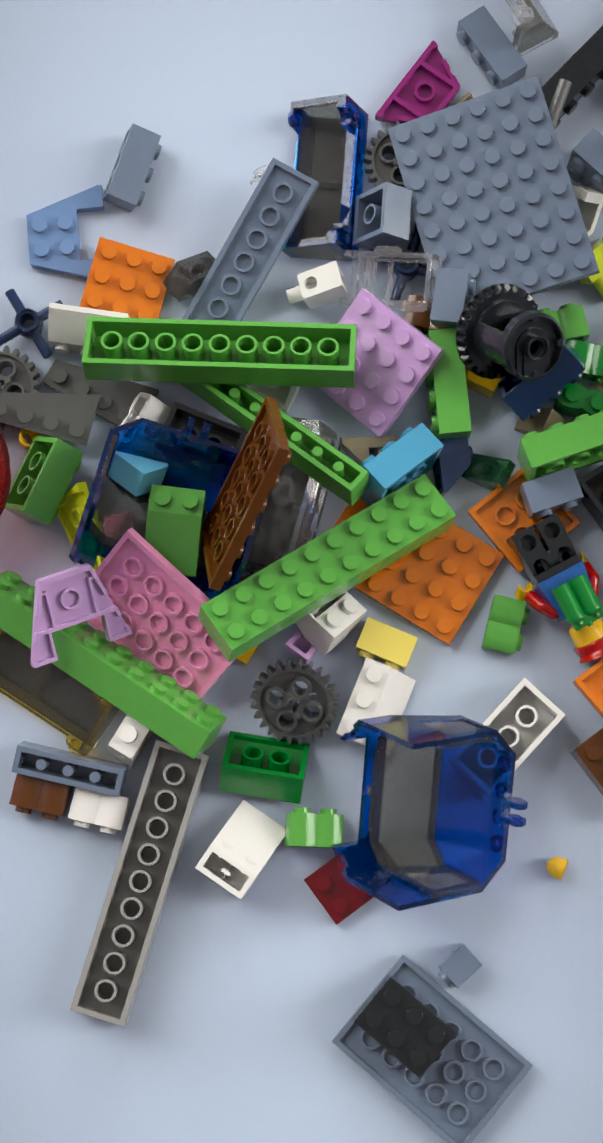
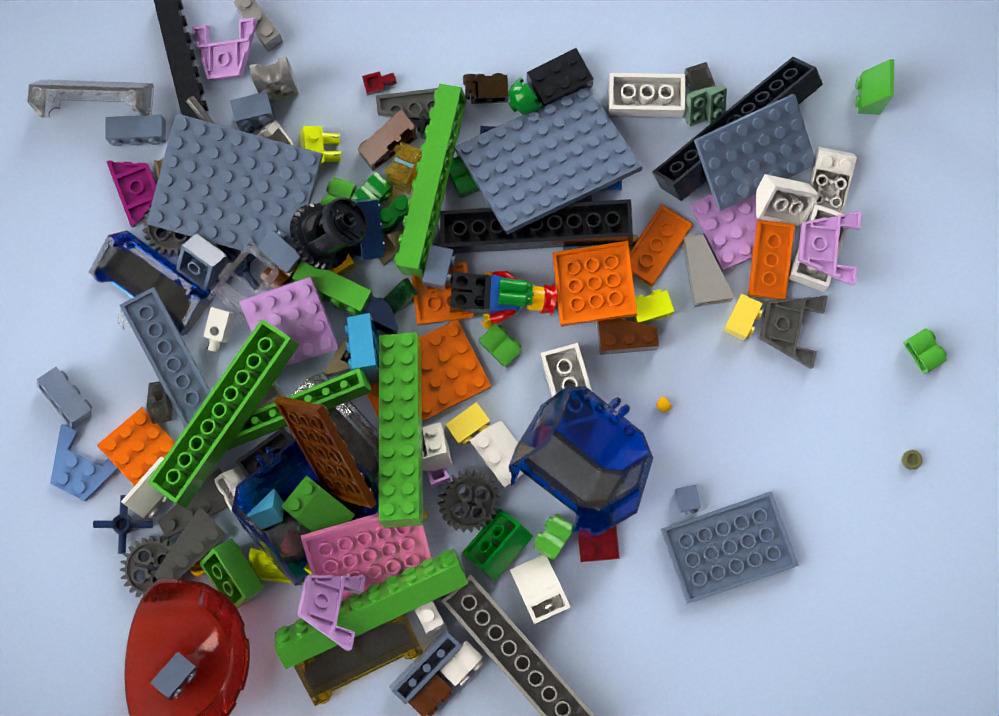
camera: 60 degrees left, 0 degrees up
(404, 1026) = (704, 553): black brick -> none

